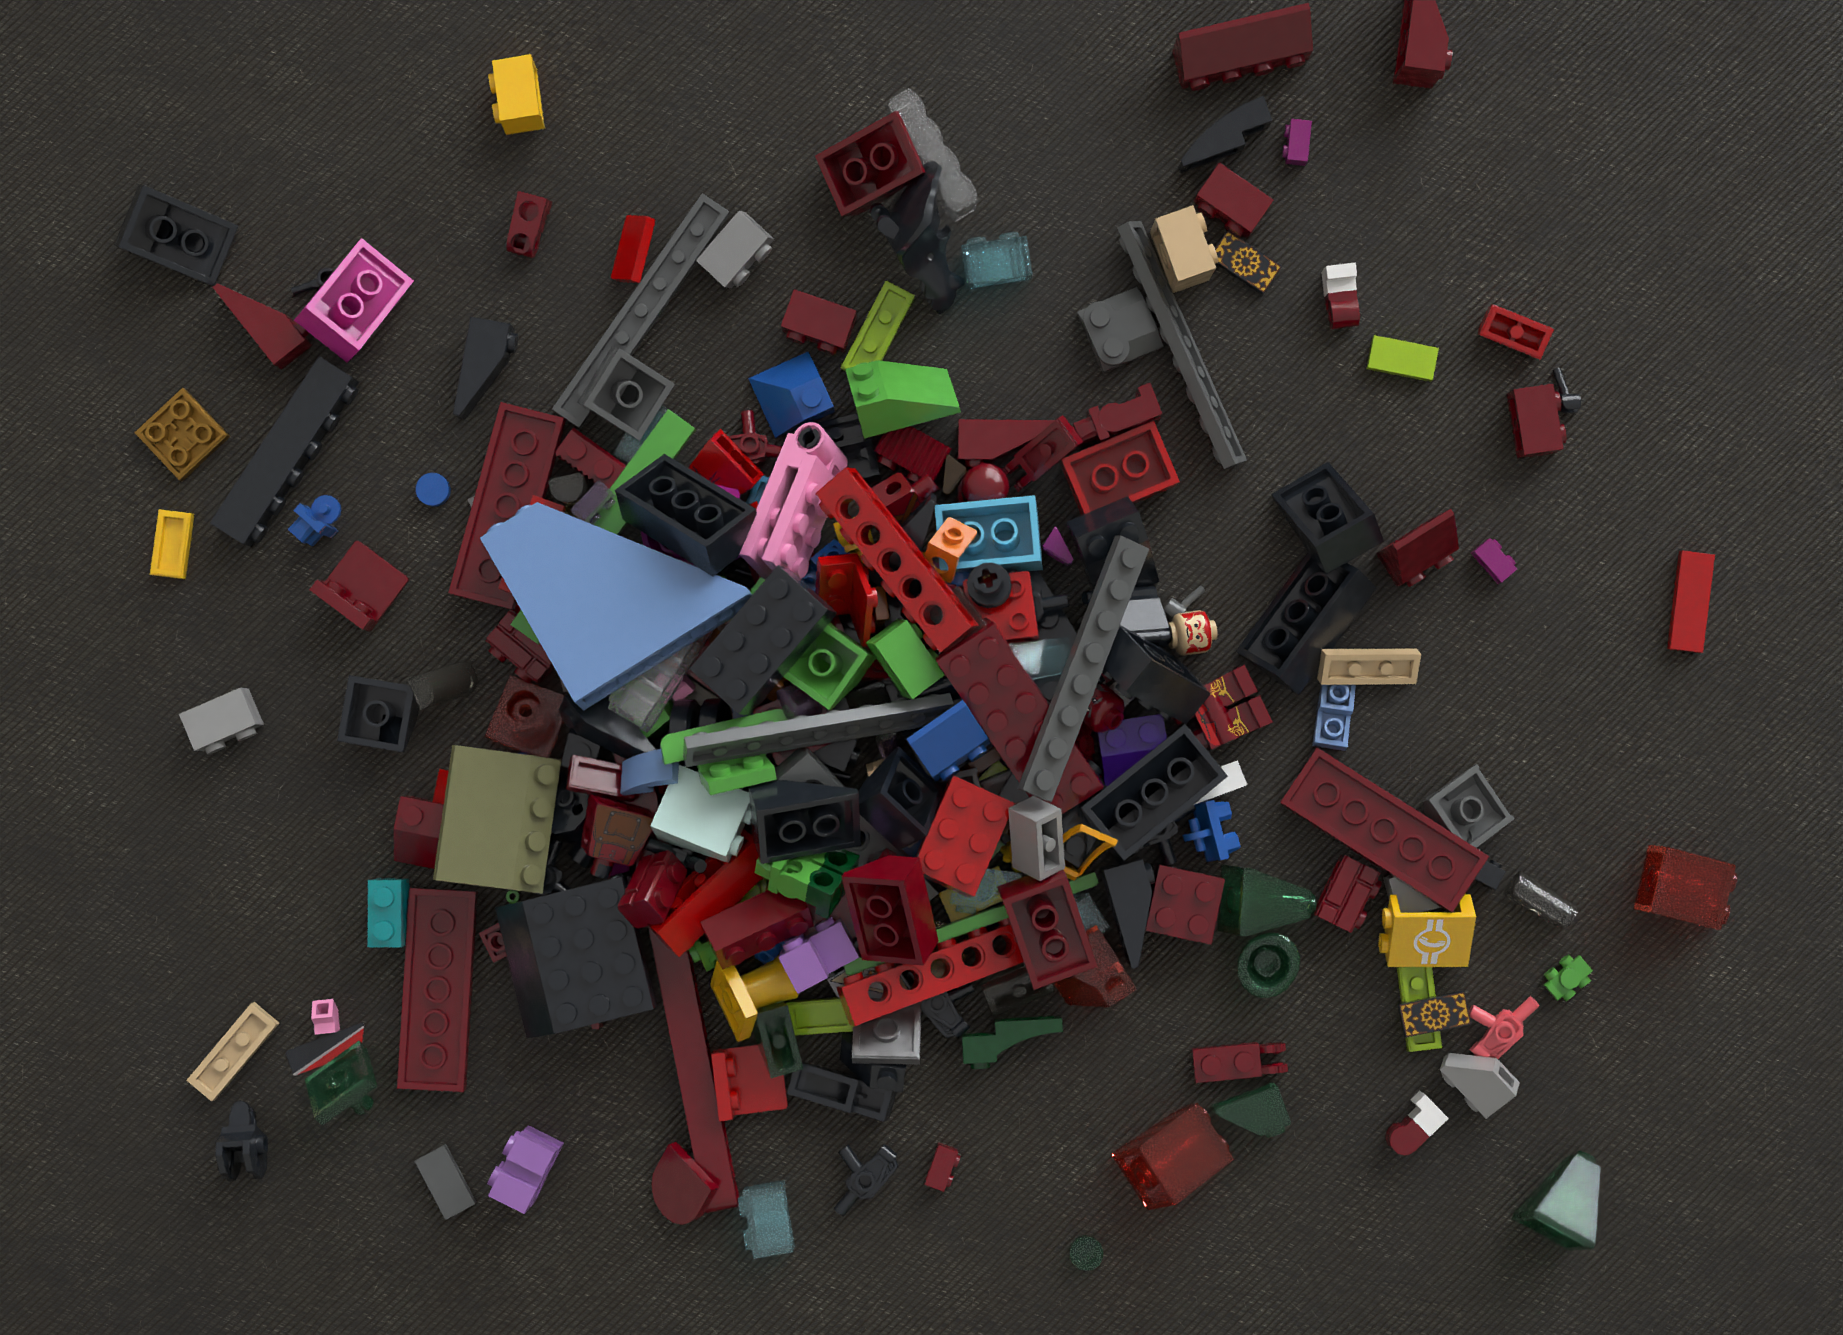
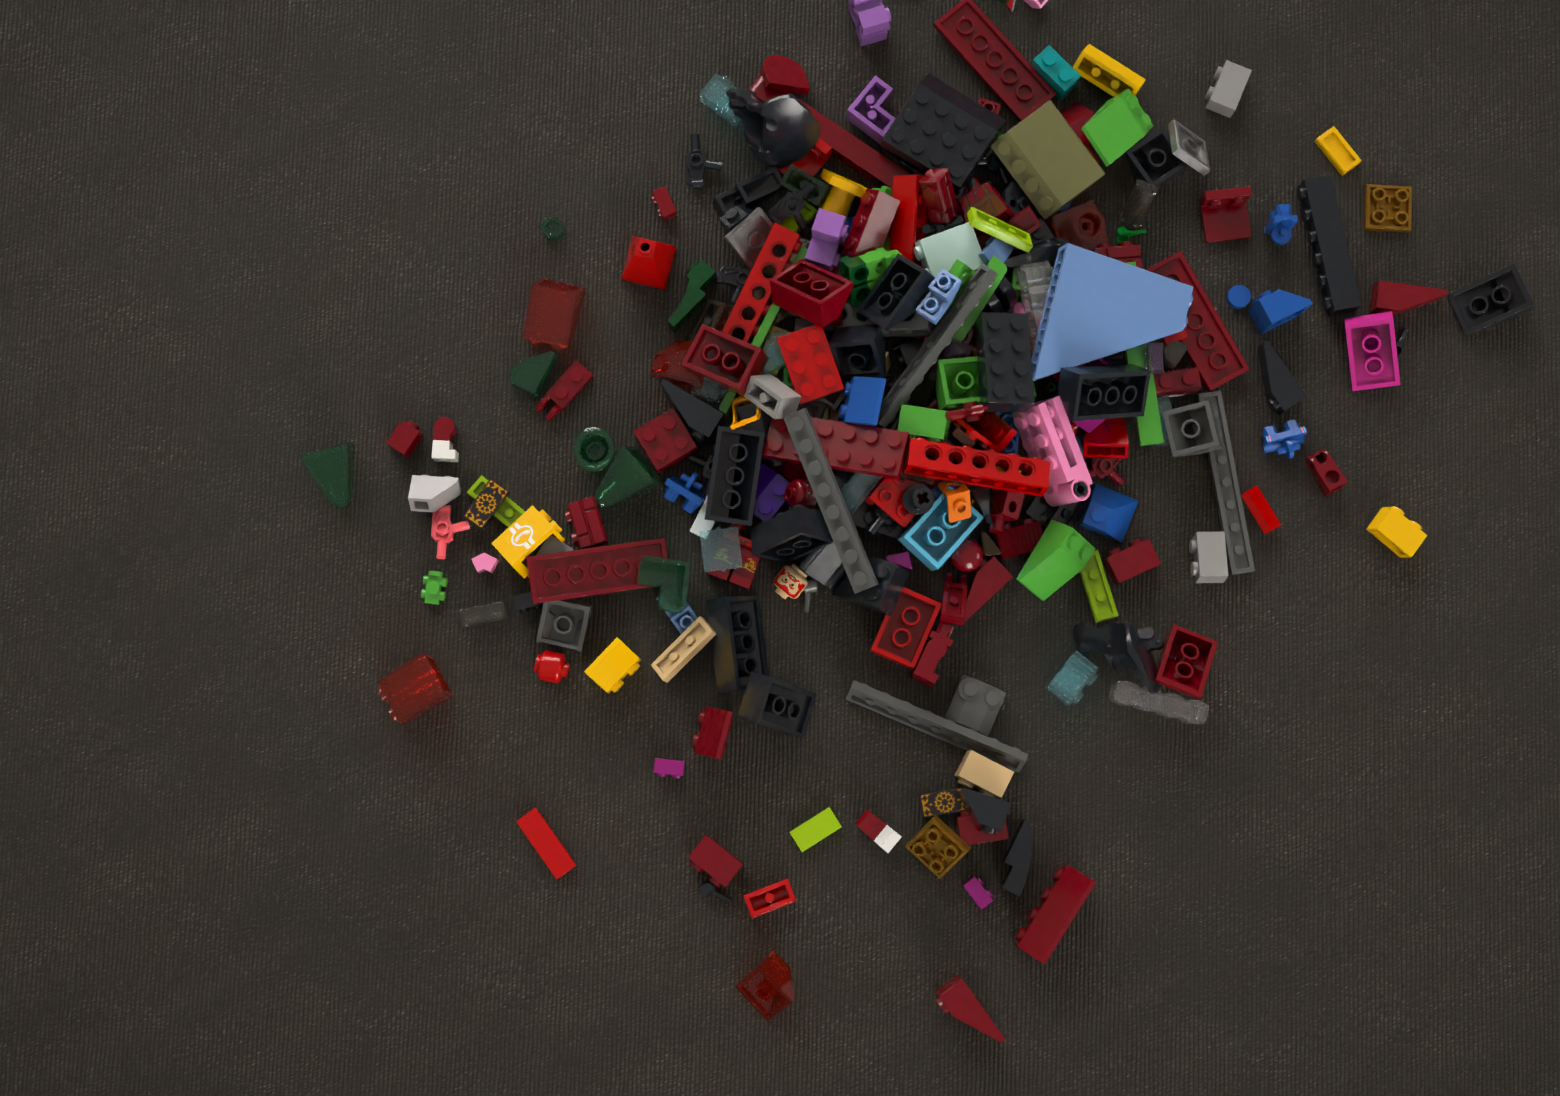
camera: 130 degrees right, 5 degrees down
(330, 693) = (1189, 147): none -> flat silver tile
(334, 855) = (1106, 72): none -> yellow brick
(386, 787) = (1117, 126): none -> bright green slope
(412, 436) = (1276, 309): none -> blue slope
(487, 668) = (1128, 233): none -> green hand
(523, 292) = (1283, 442): none -> blue hips
(626, 789) = (999, 229): none -> lime tile
(631, 1060) = (868, 110): none -> medium lavender brick
(758, 1131) = (775, 129): none -> black animal
(767, 771) = (939, 298): none -> medium blue slope
(814, 1031) = (791, 205): none -> black piece
(850, 623) = (970, 412): none -> dark red piece
(1017, 1103) = (648, 262): none -> red slope
(1222, 205) = (985, 810): none -> black slope
(1235, 732) = (721, 549): none -> clear light blue piece
(1297, 222) = (937, 847): none -> pearl gold tile
(1316, 749) = (670, 576): none -> clear green panel
(1455, 1167) = (405, 438): none -> dark red window
(1458, 716) = (613, 666): none -> yellow slope
(1490, 954) = (485, 563): none -> bright pink piece
(1521, 778) = (551, 666): none -> red head
(1596, 247) = (768, 986): none -> clear red slope

